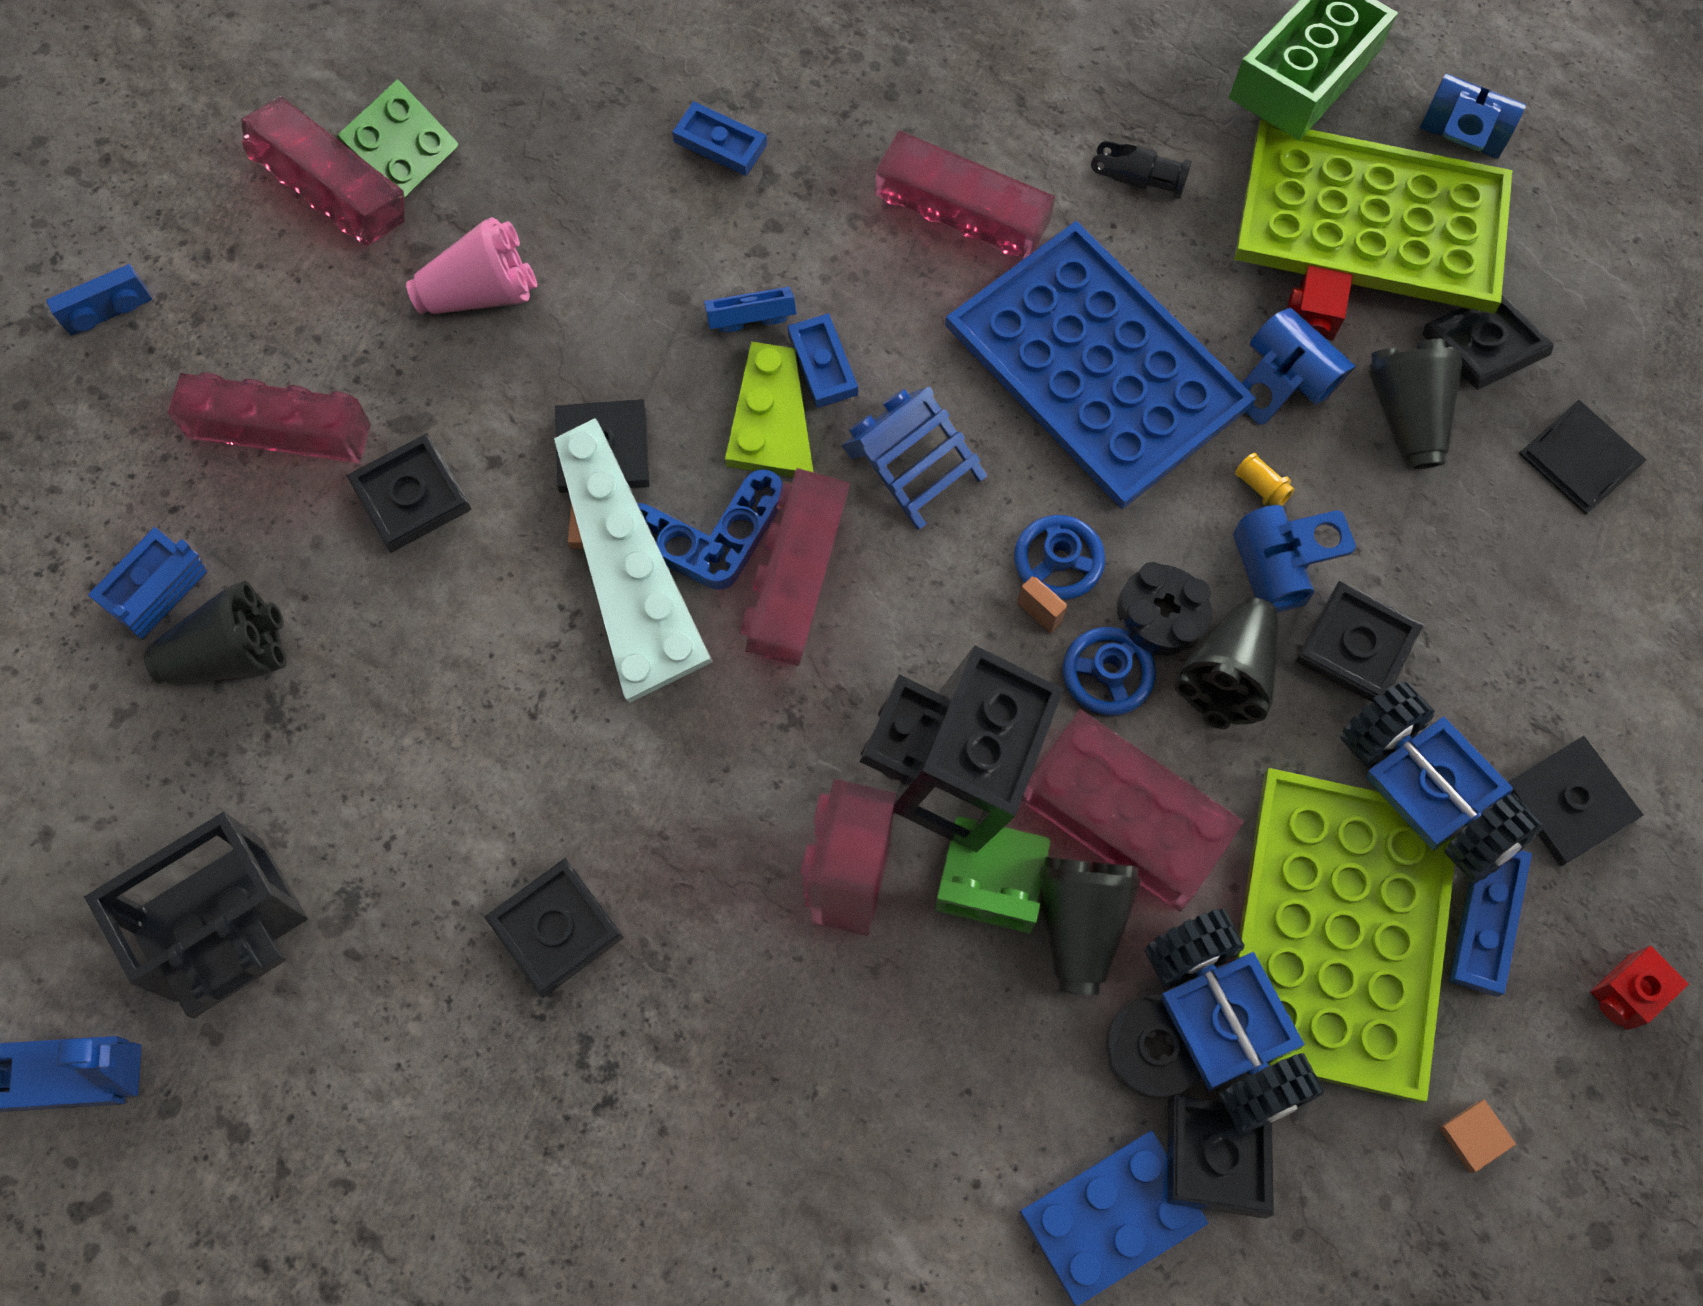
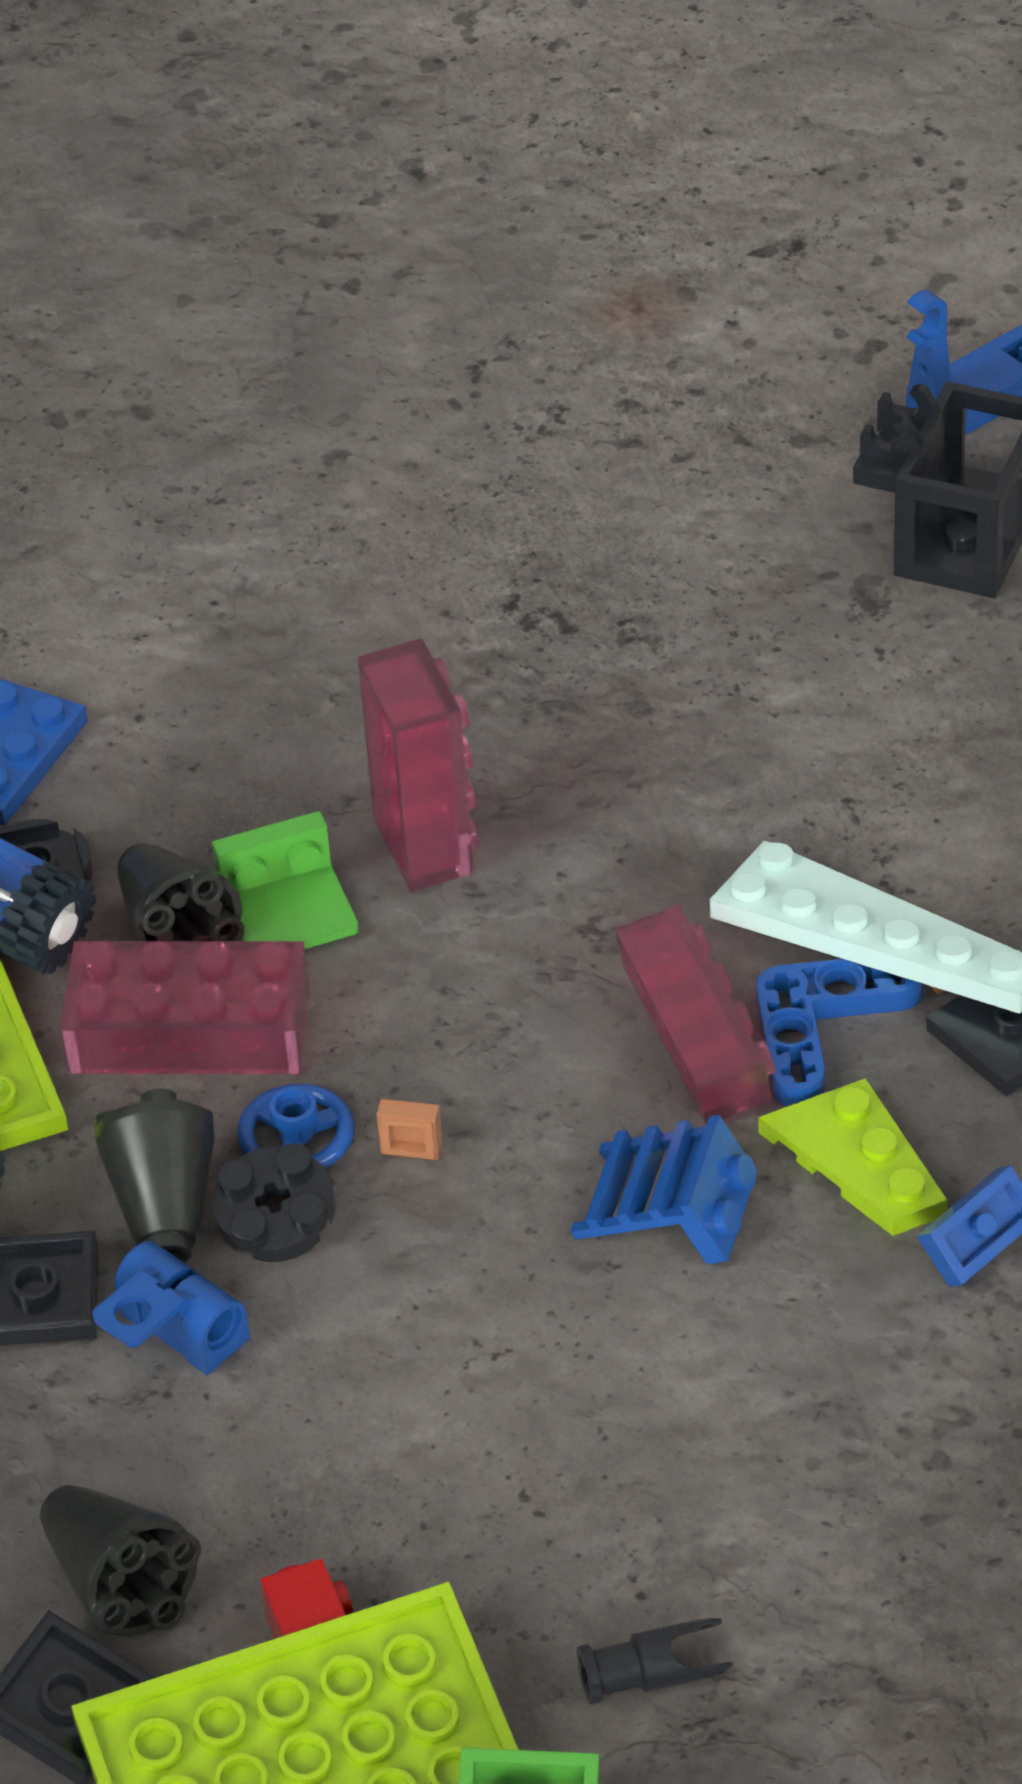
camera: 150 degrees right, 25 degrees down
(554, 927) = (665, 664): black plate -> none
(822, 360) = (850, 1226): blue plate -> none
(963, 195) = (841, 1474): clear pink brick -> none
(966, 740) = (375, 904): black piece -> none
(1063, 536) = (426, 1193): blue piece -> none
(1099, 363) = (533, 1405): blue plate -> none
(1265, 481) = (245, 1388): yellow pin -> none
(1294, 360) = (290, 1513): blue piece -> none

